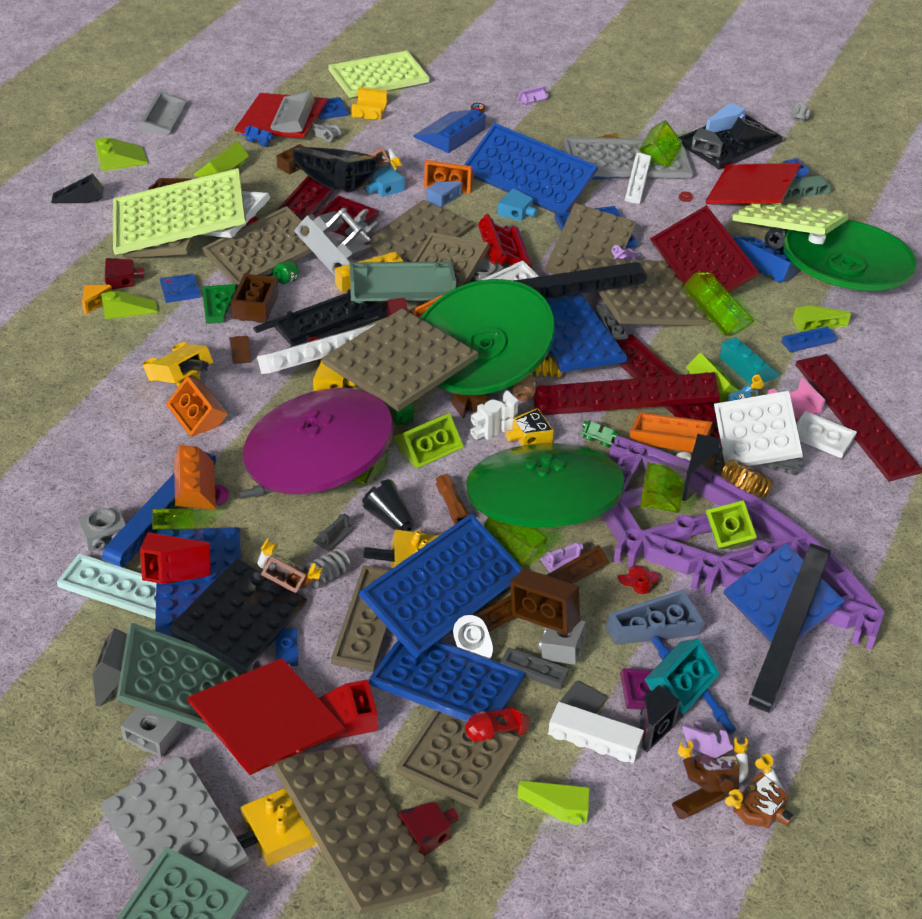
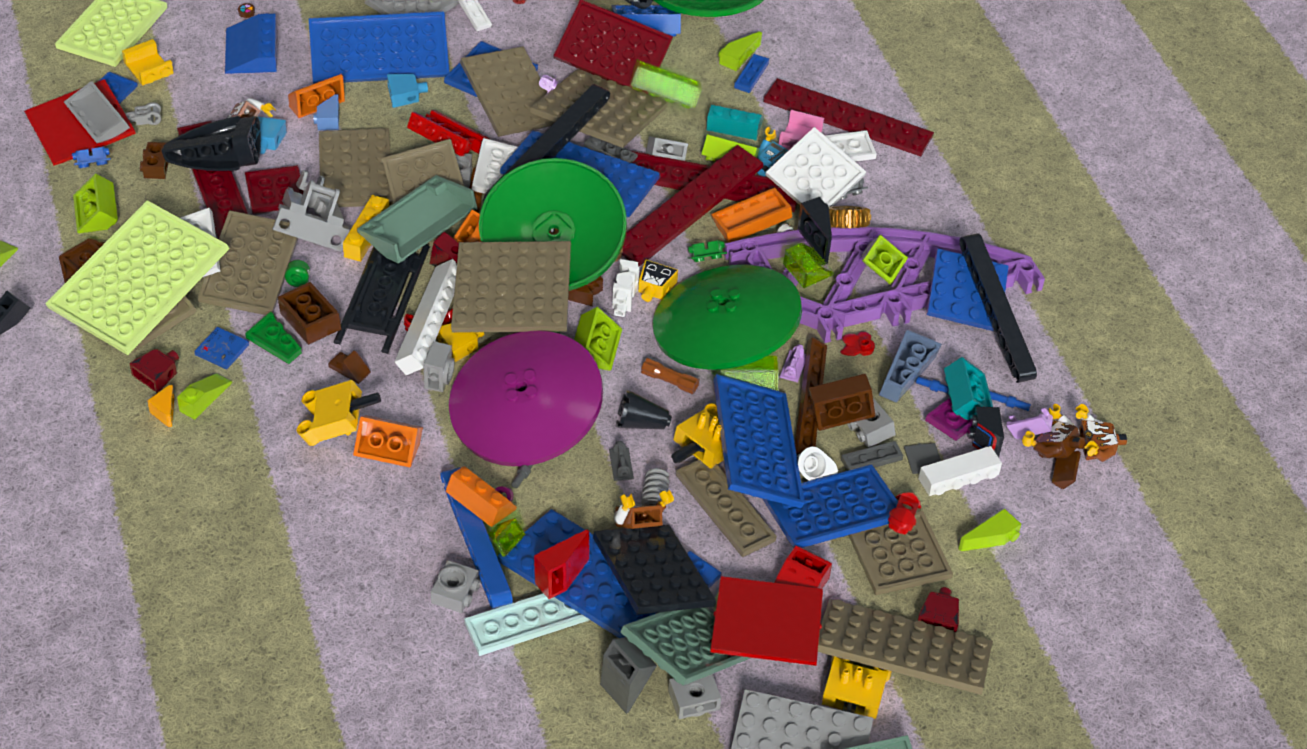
camera: 45 degrees left, 5 degrees up
(288, 381) = (438, 367): none -> light grey brick
(661, 347) = (666, 148): none -> light grey slope

